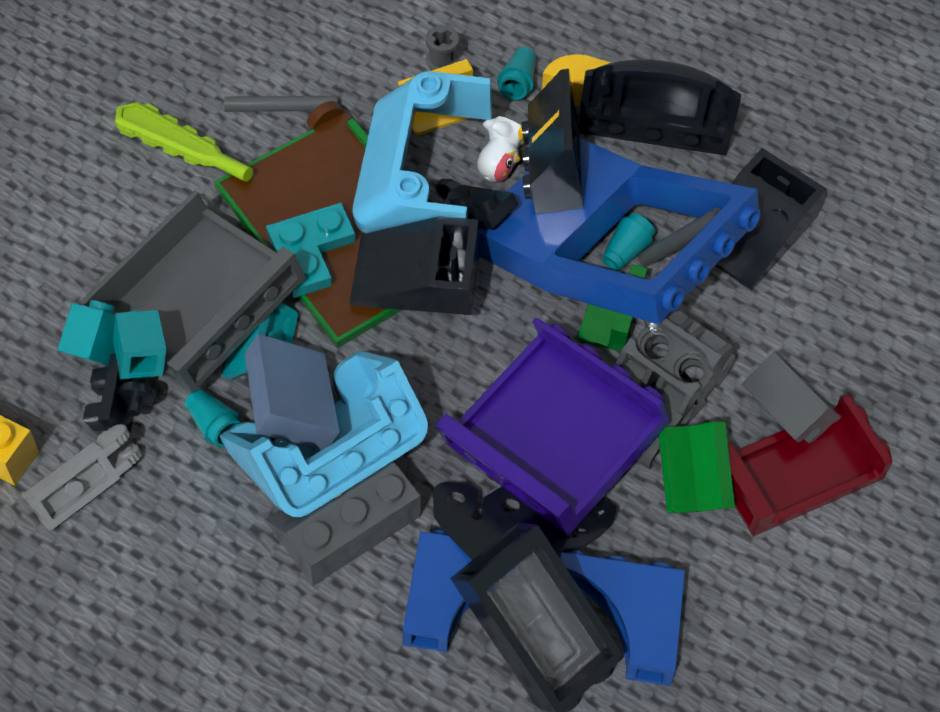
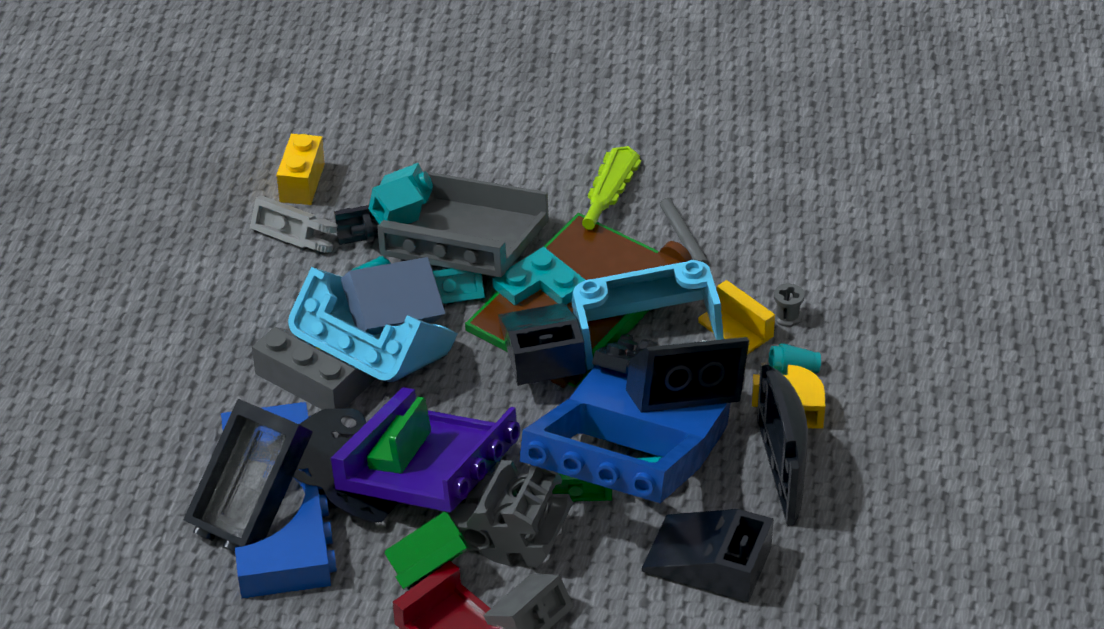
camera: 75 degrees right, 15 degrees down
(532, 444) = (401, 439): none -> green panel

